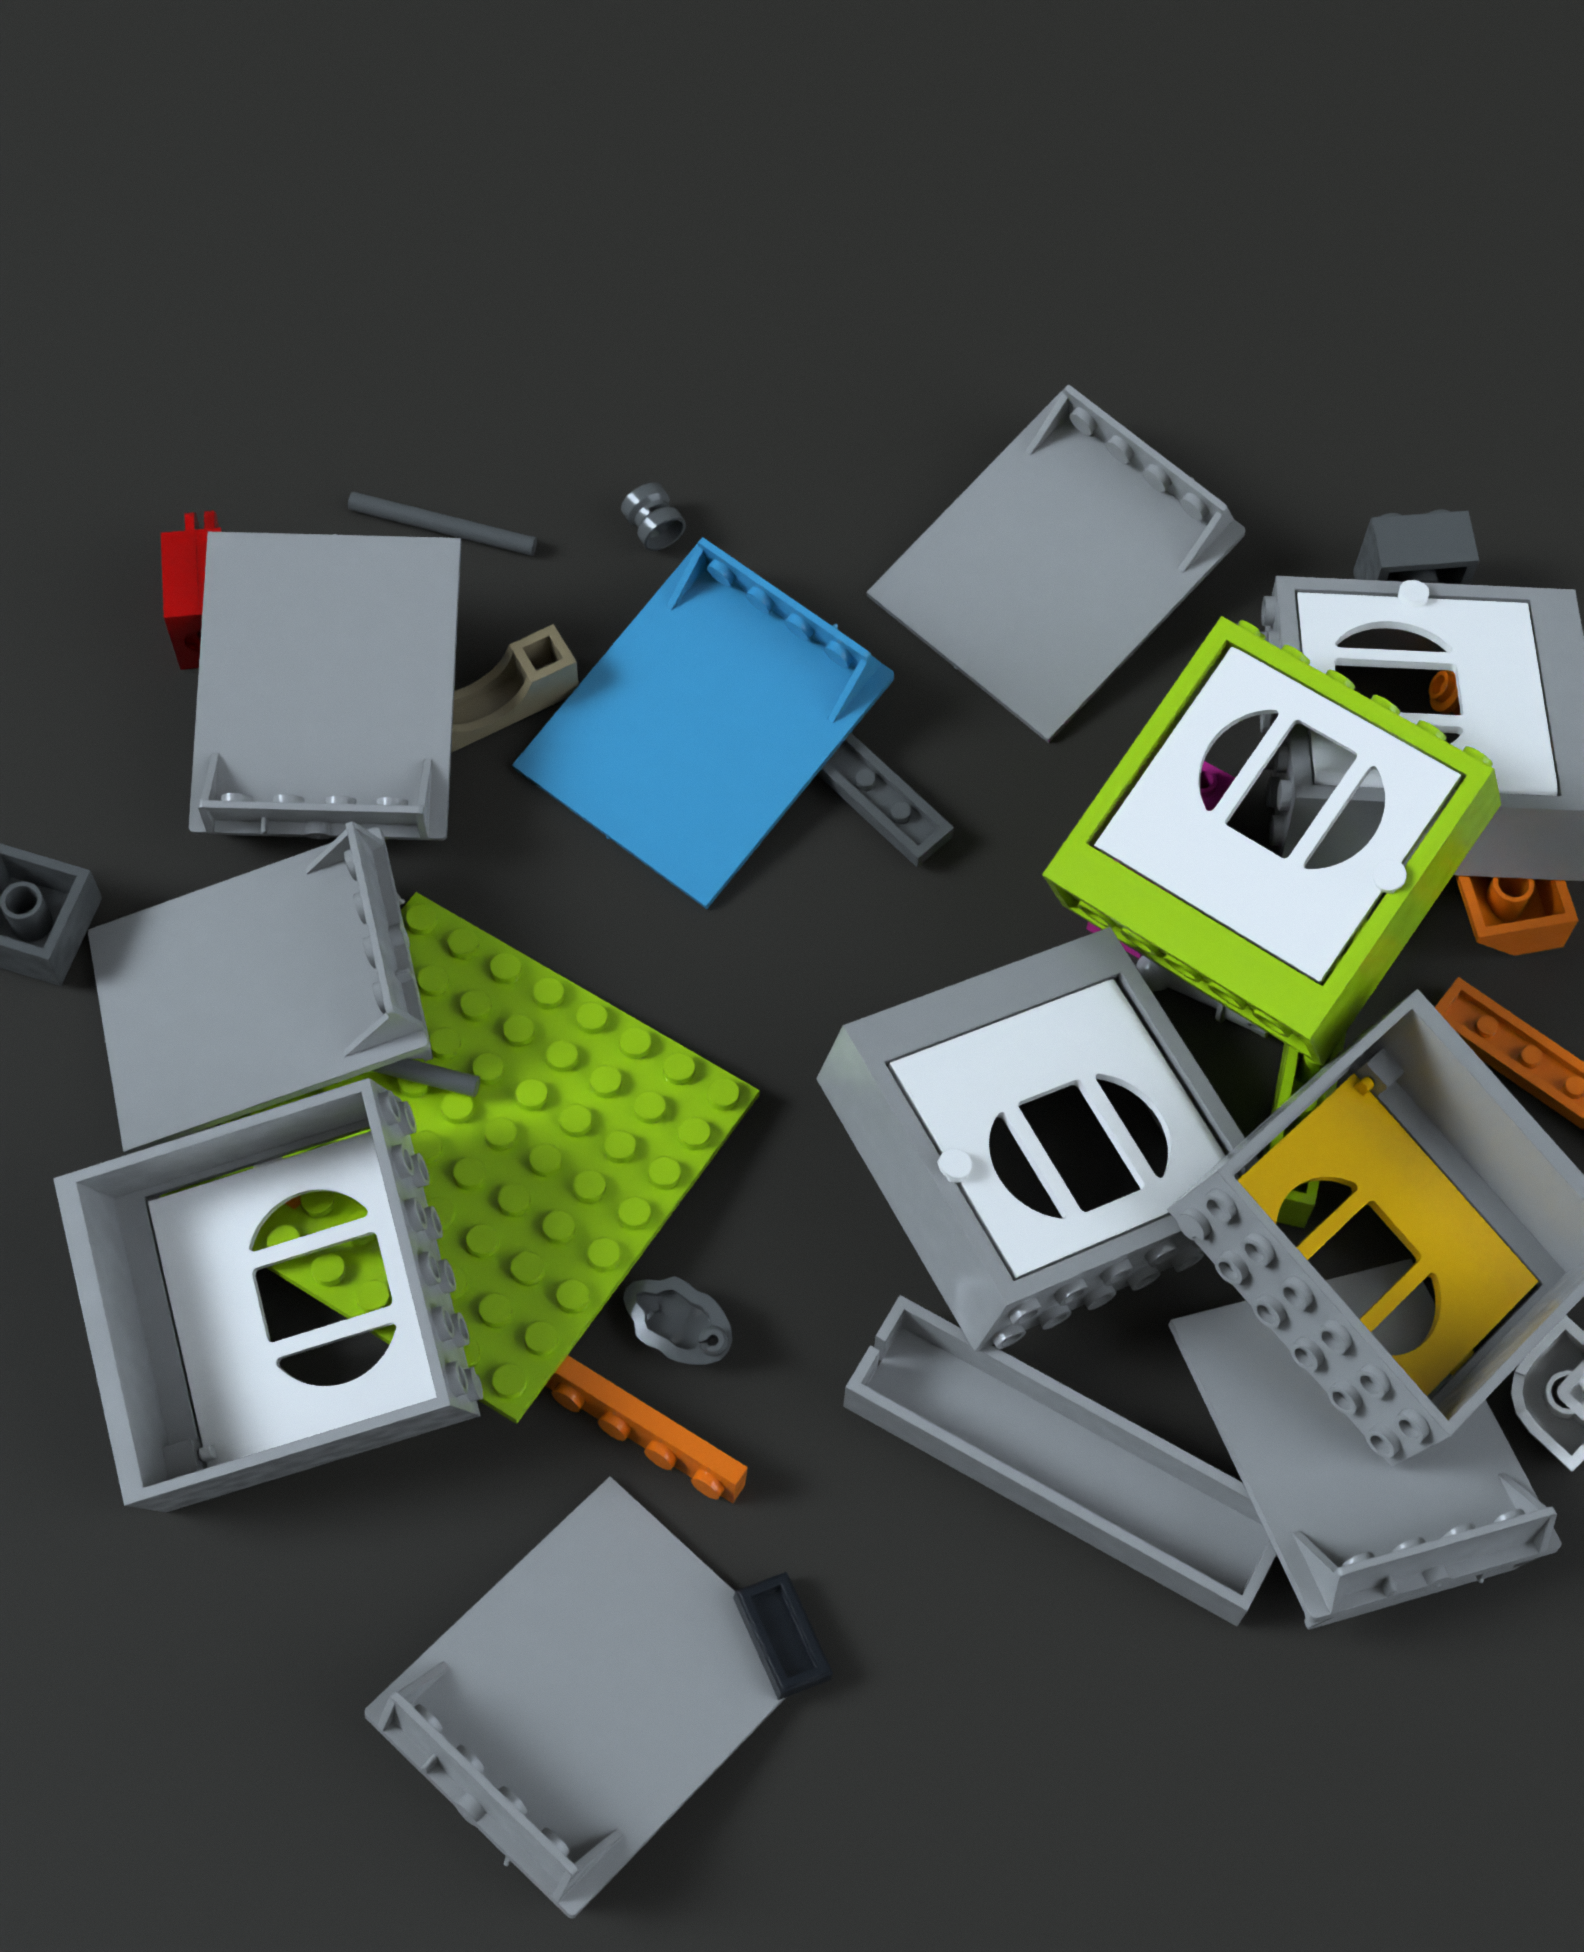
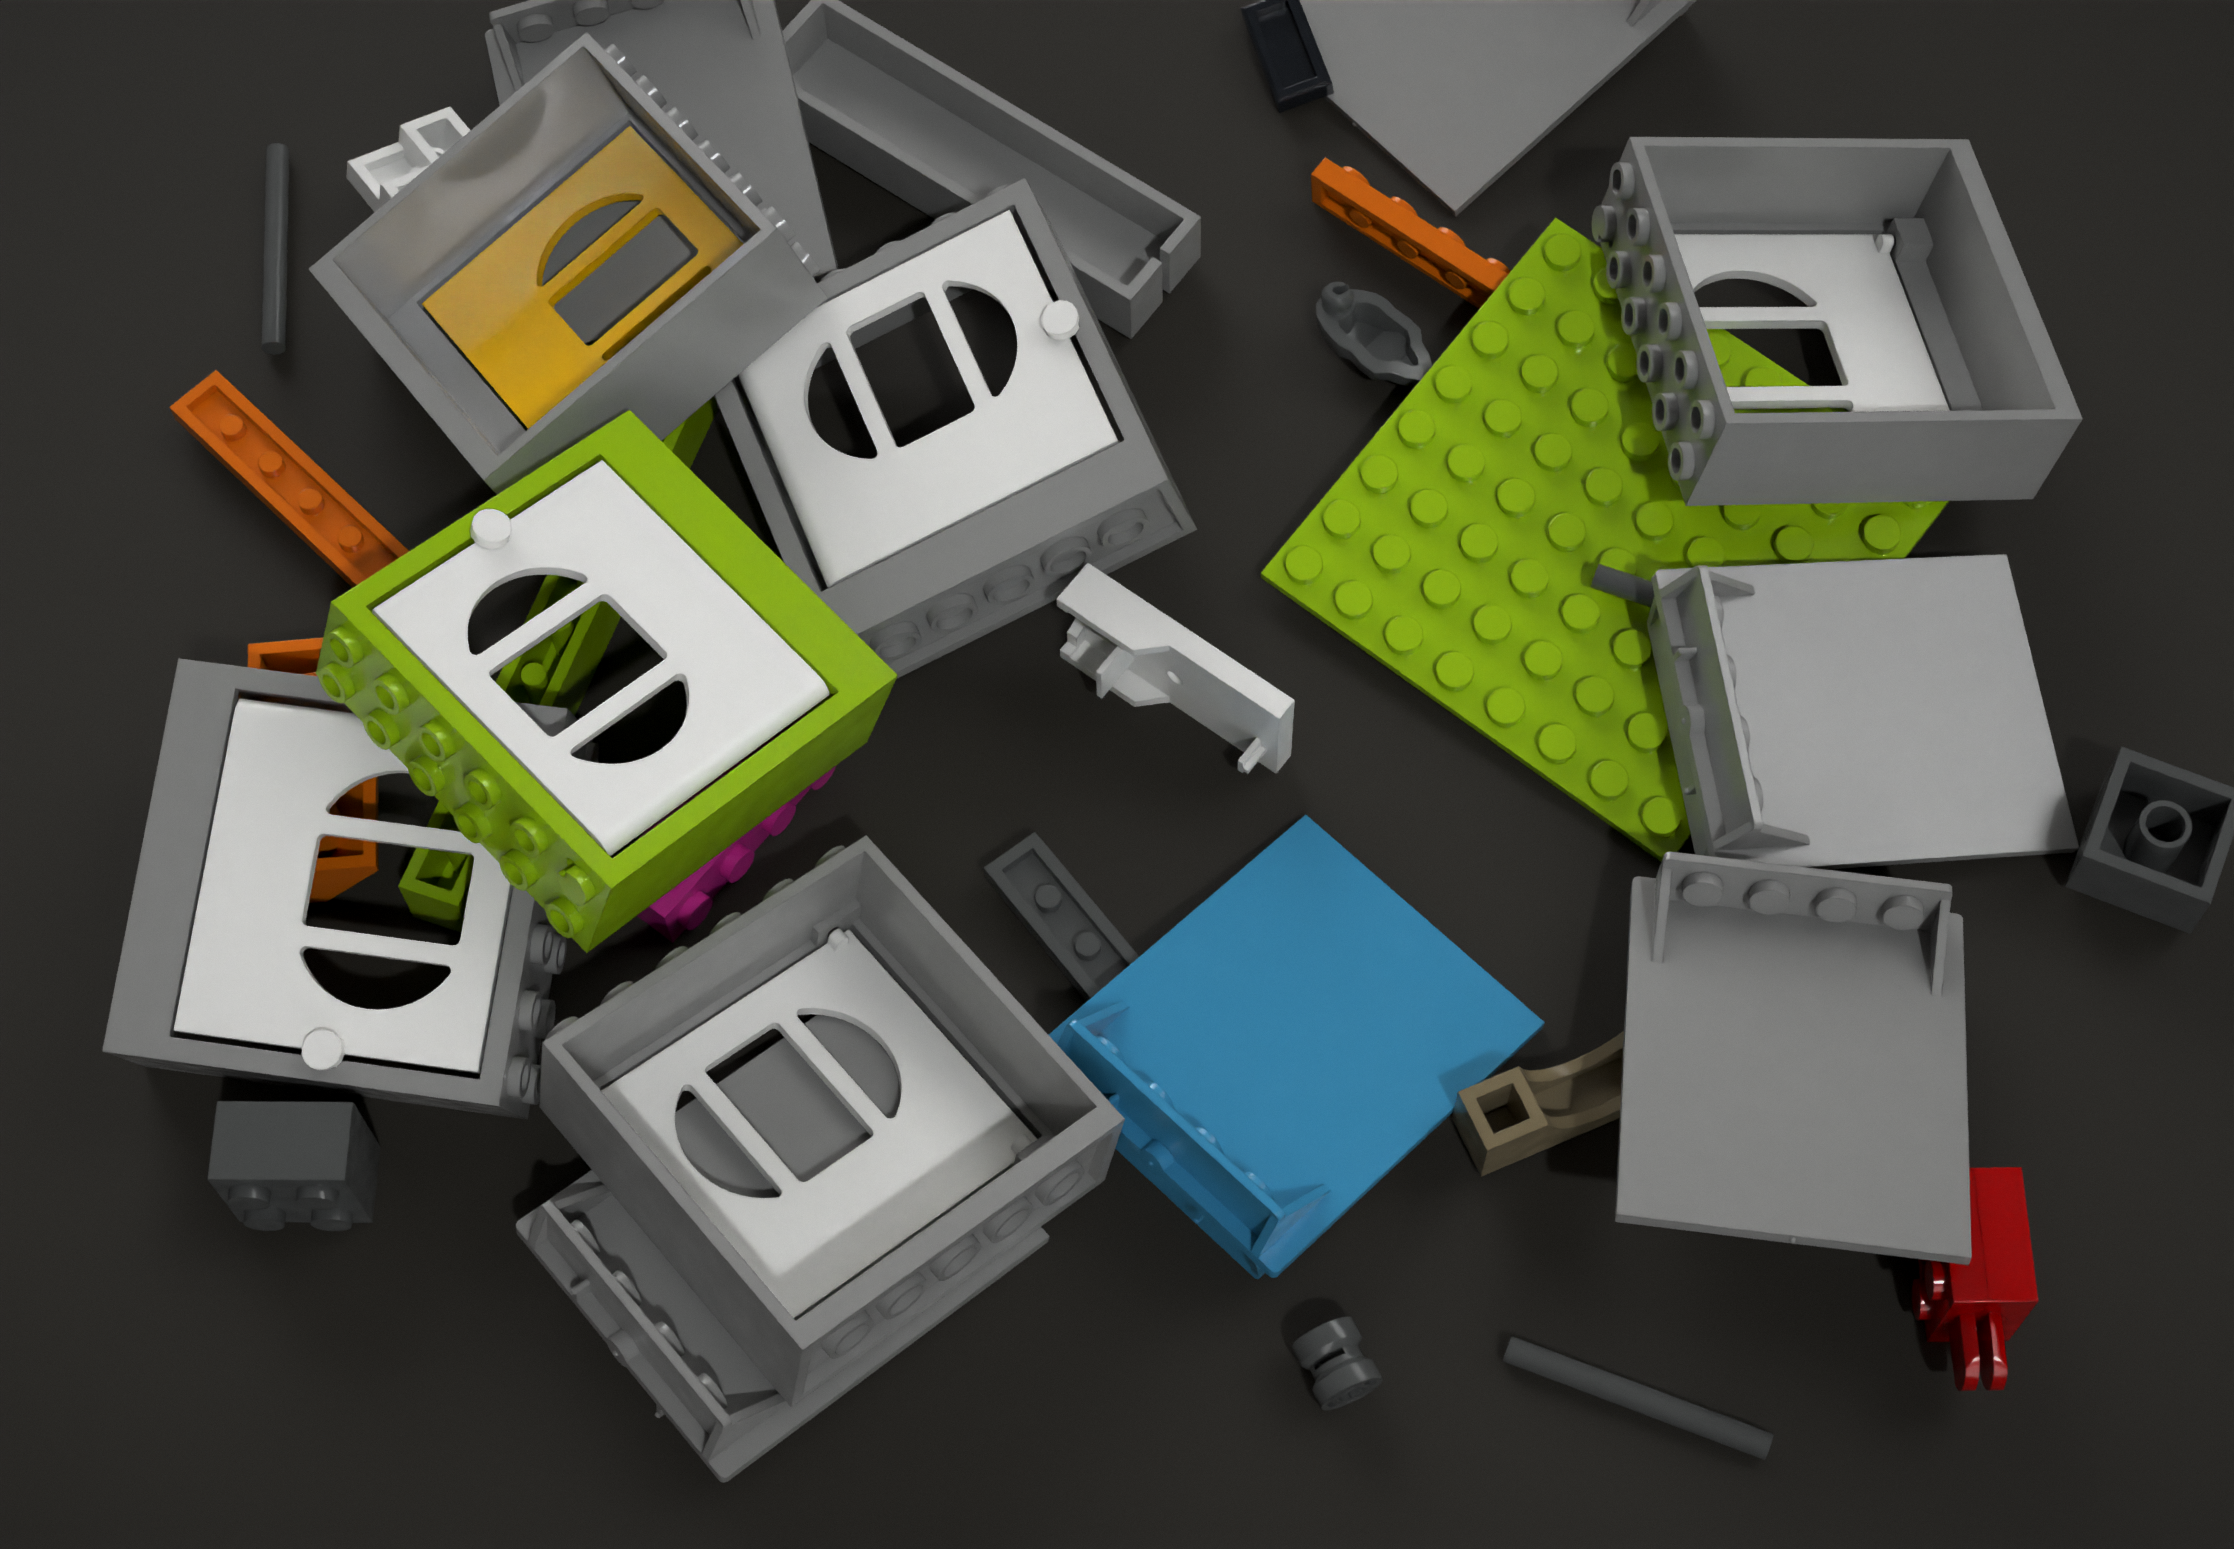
camera: 170 degrees left, 0 degrees up
(832, 984) = (1159, 661): none -> white piece
(985, 546) = (899, 1218): none -> door

